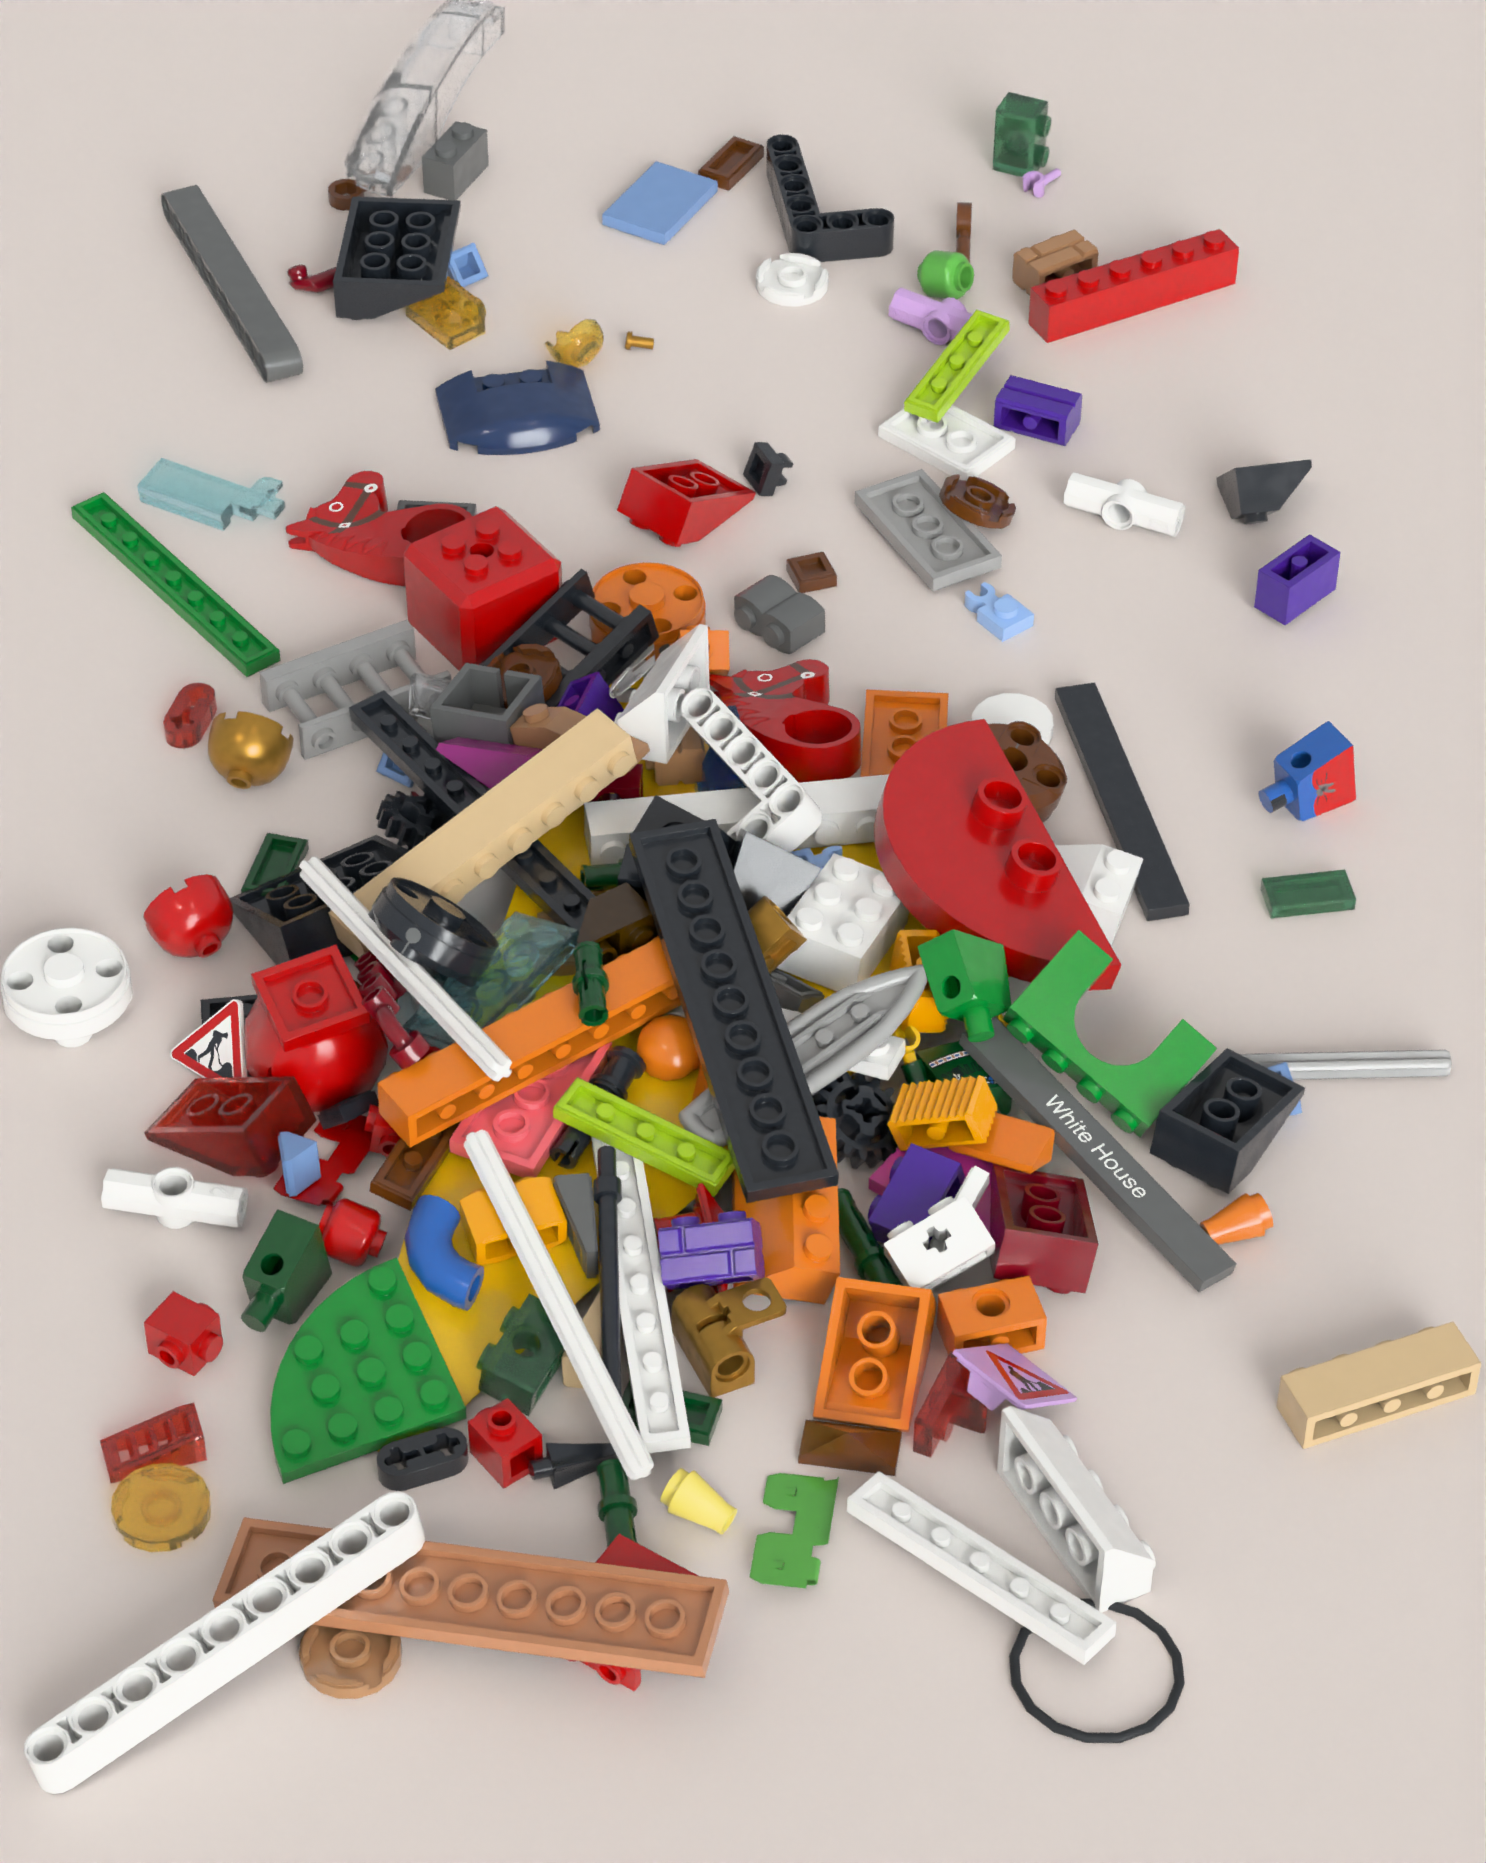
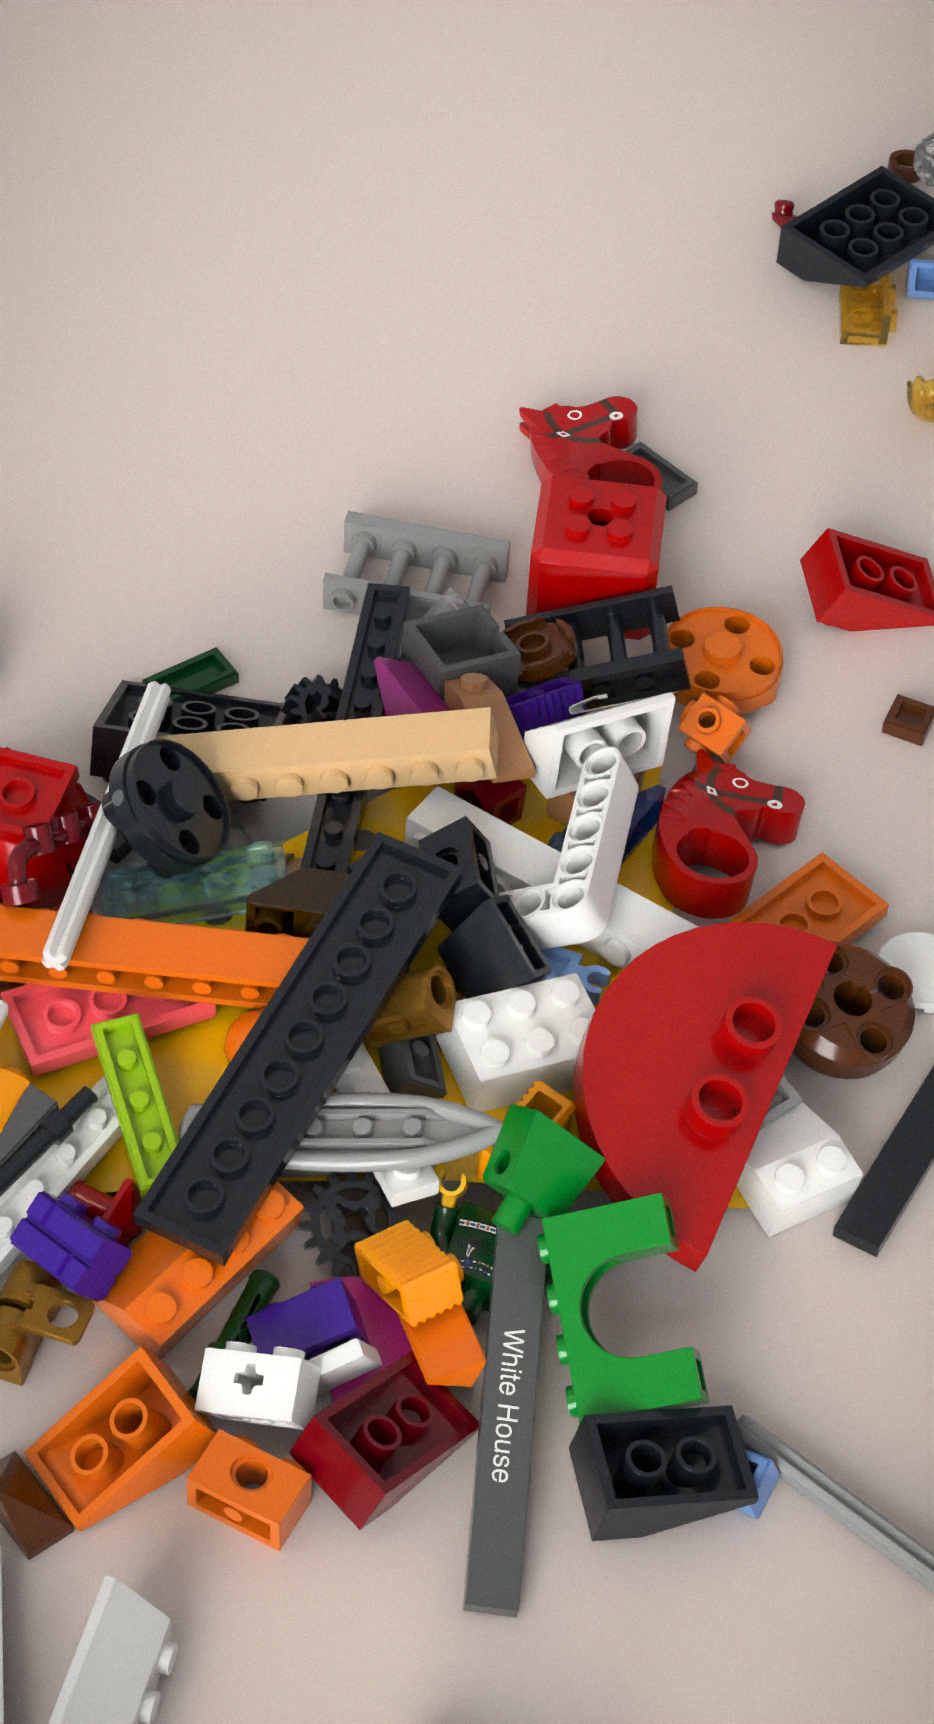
camera: 40 degrees right, 5 degrees up
(176, 584) = (394, 405): green tile -> none
(192, 919) = (66, 675): red cylinder -> none
(198, 717) = (276, 514): clear red beam -> none
(207, 496) = (498, 348): clear light blue piece -> none
(232, 284) = (721, 187): dark grey beam -> none
(248, 749) = (268, 570): pearl gold cylinder -> none
(517, 410) = (832, 427): dark blue slope -> none
(590, 983) = (213, 939): dark green pin -> none
(616, 1077) = (167, 1044): black pin -> none
(779, 614) = (829, 737): dark grey brick -> none
(947, 1406) = (130, 1527): clear red slope -> none
(1005, 1374) = (189, 1554): lavender piece -> none
(1240, 1220) = (567, 1573): orange cone -> none

